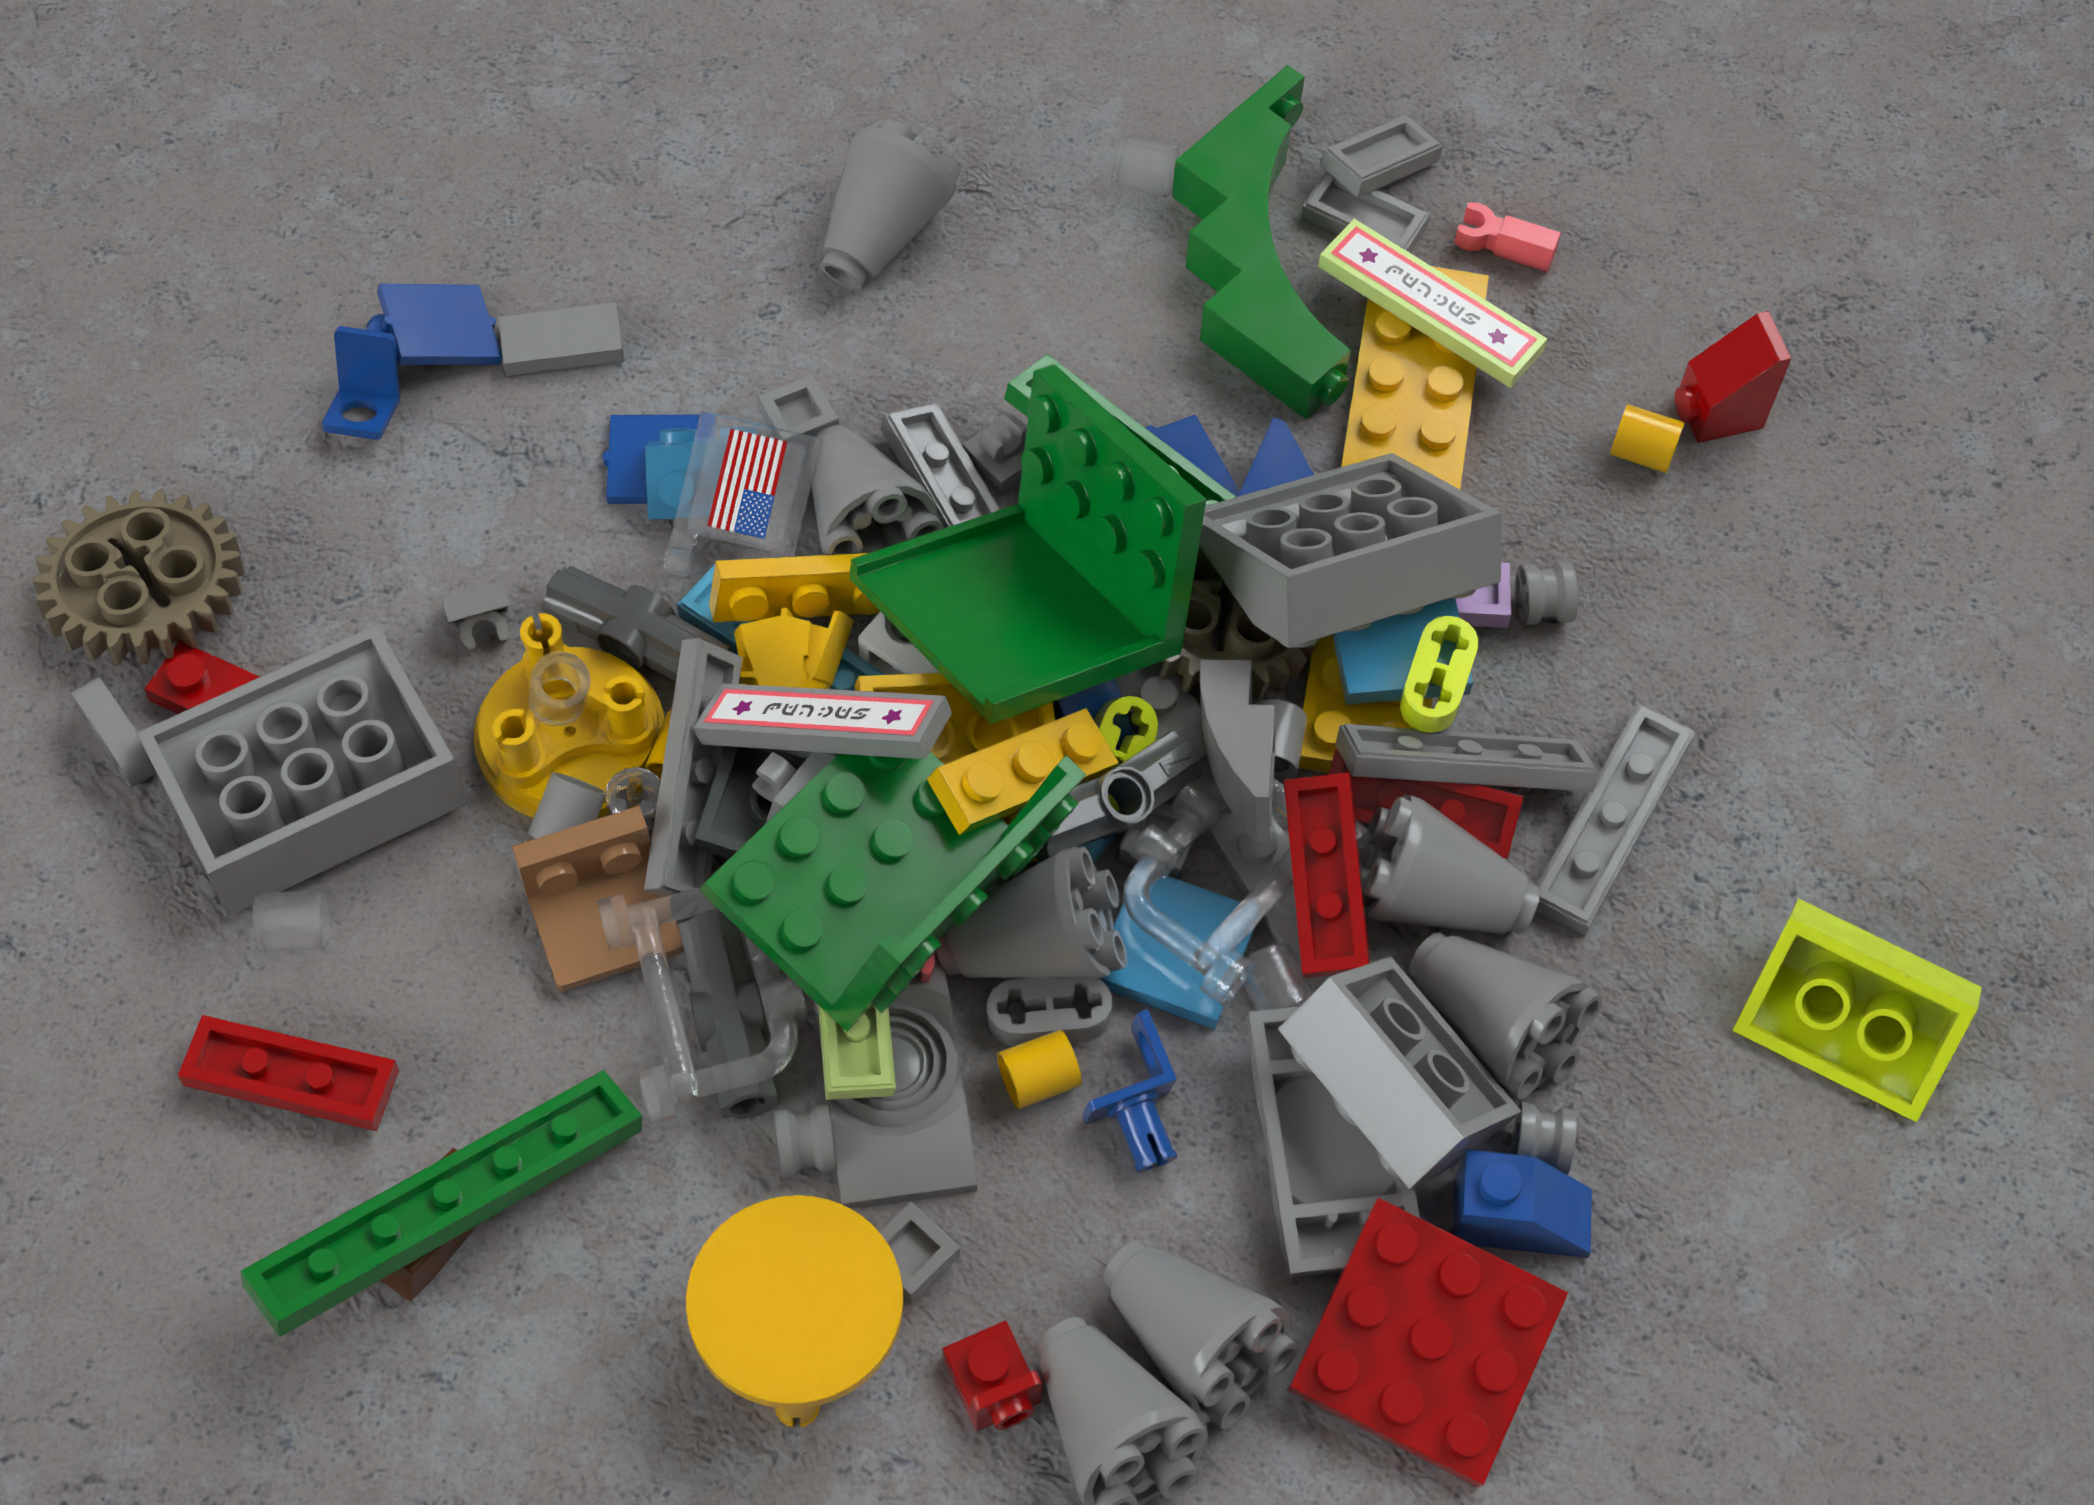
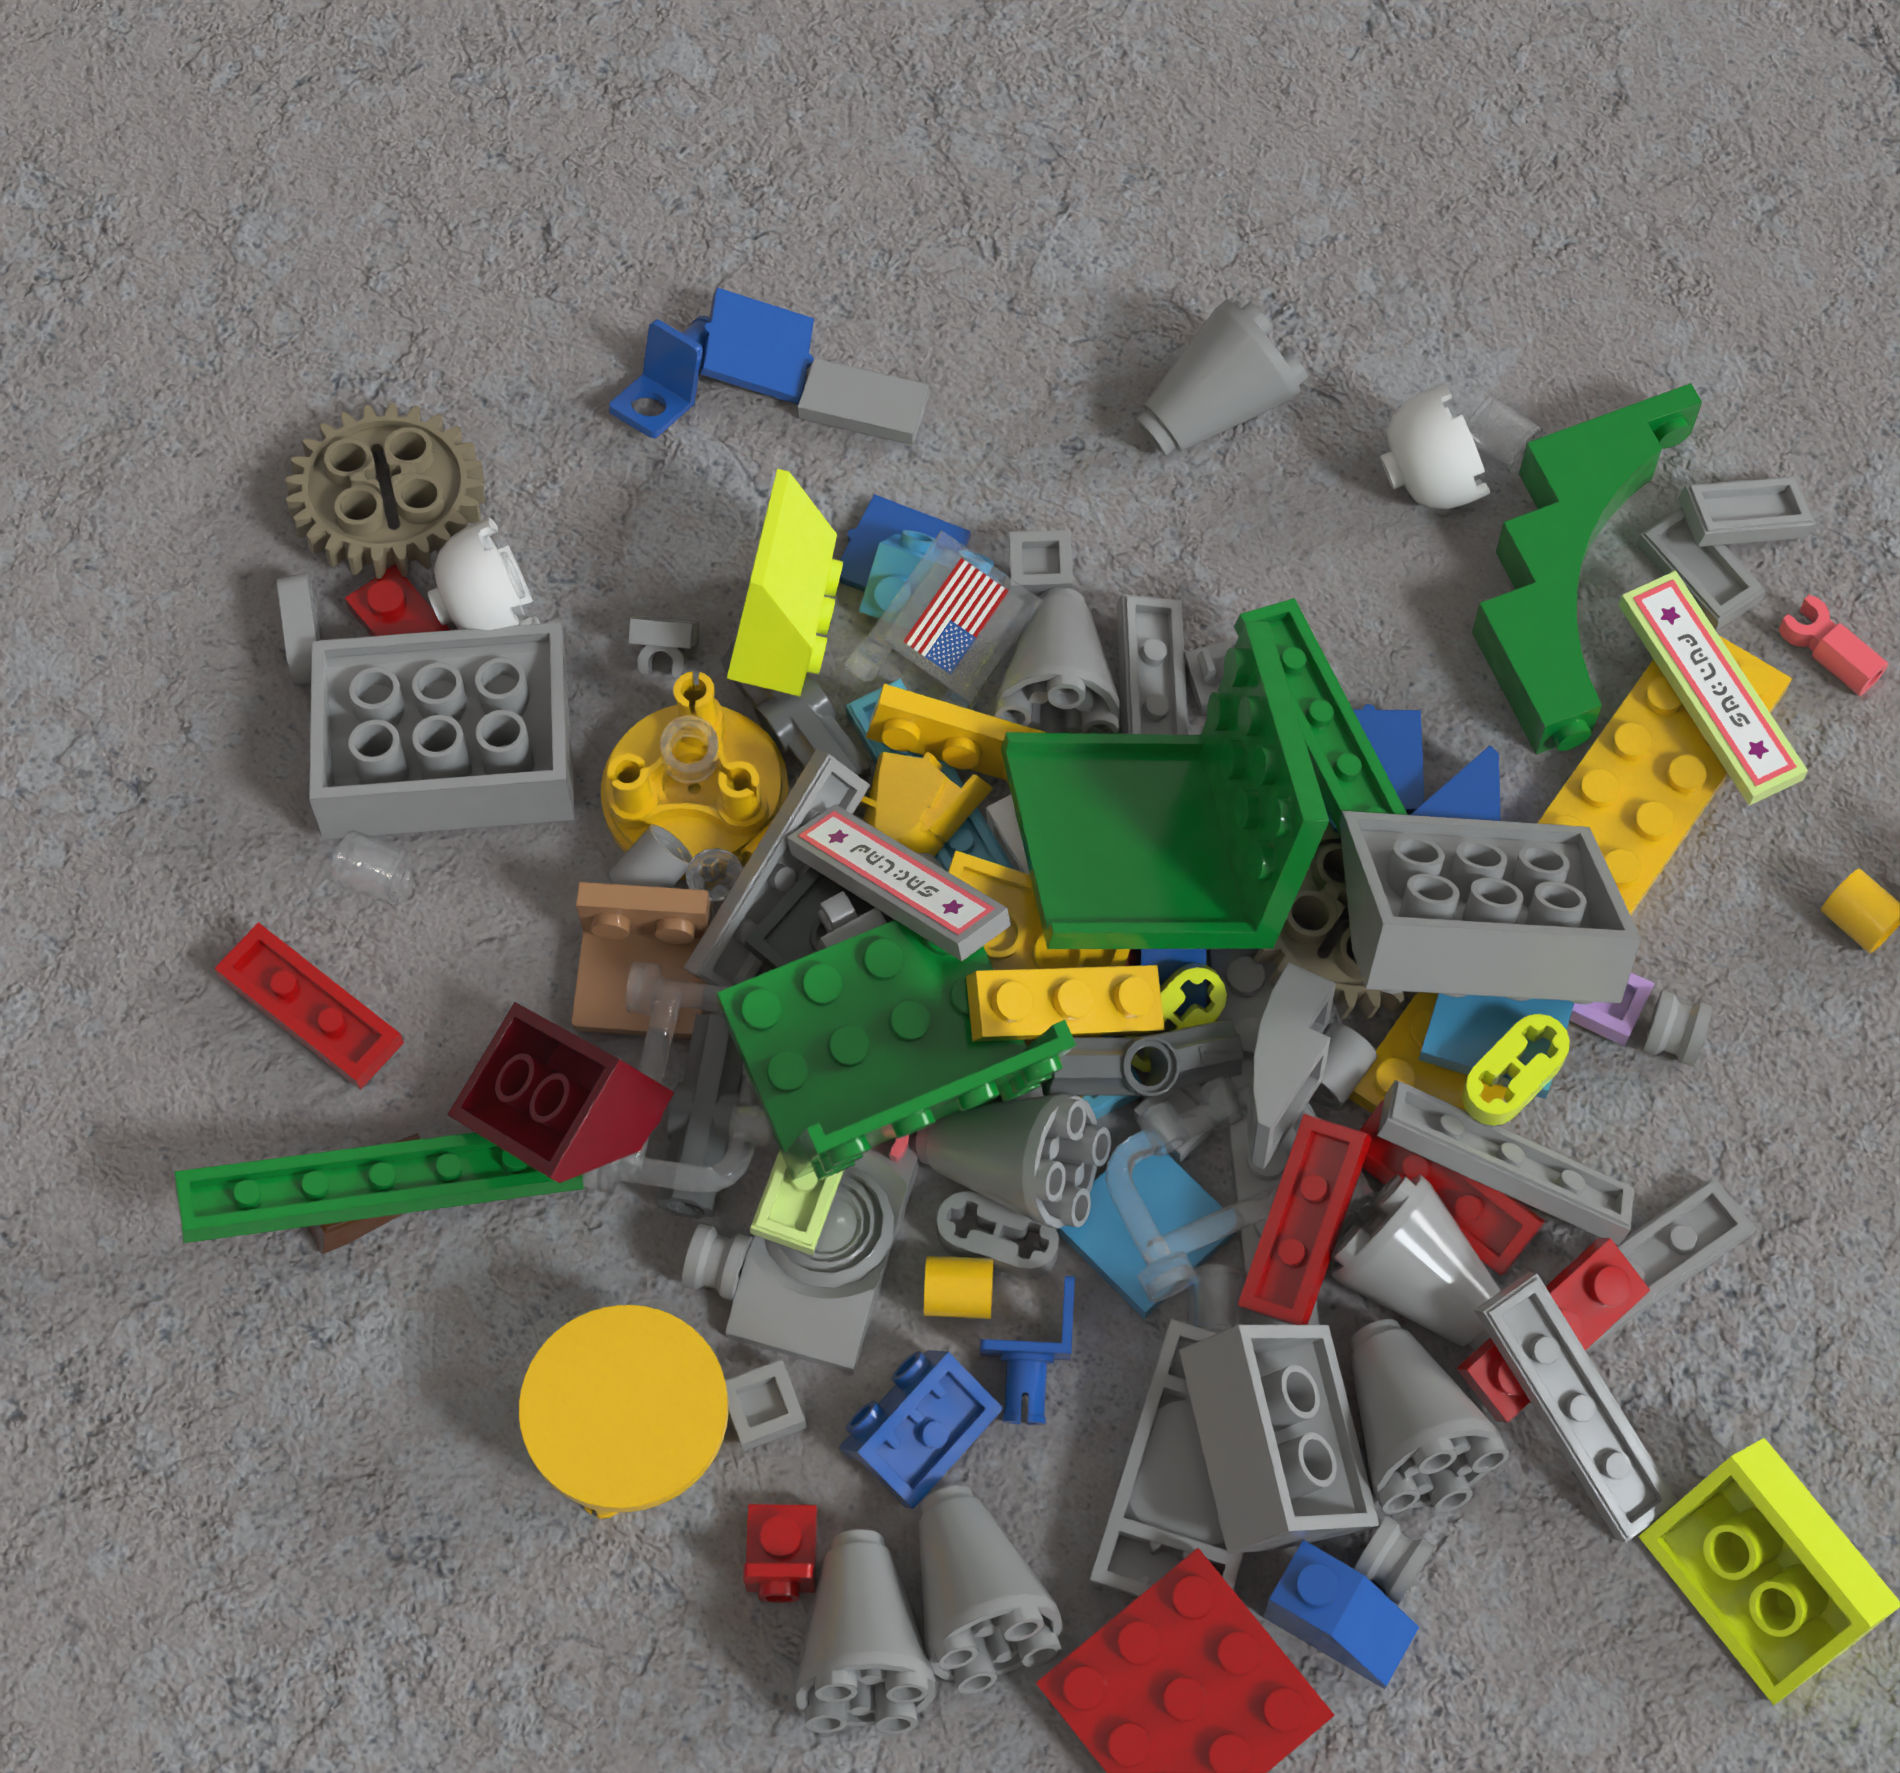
camera: 30 degrees right, 5 degrees up
(275, 620) = (479, 582): none -> white cylinder
(580, 520) = (787, 593): none -> neon yellow slope
(588, 1045) = (557, 1098): none -> dark red slope
(1065, 1206) = (920, 1425): none -> blue bracket
(1101, 195) = (1433, 453): none -> white cylinder
(1579, 881) = (1592, 1298): none -> red plate
(1634, 936) = (1576, 1406): none -> light grey tile

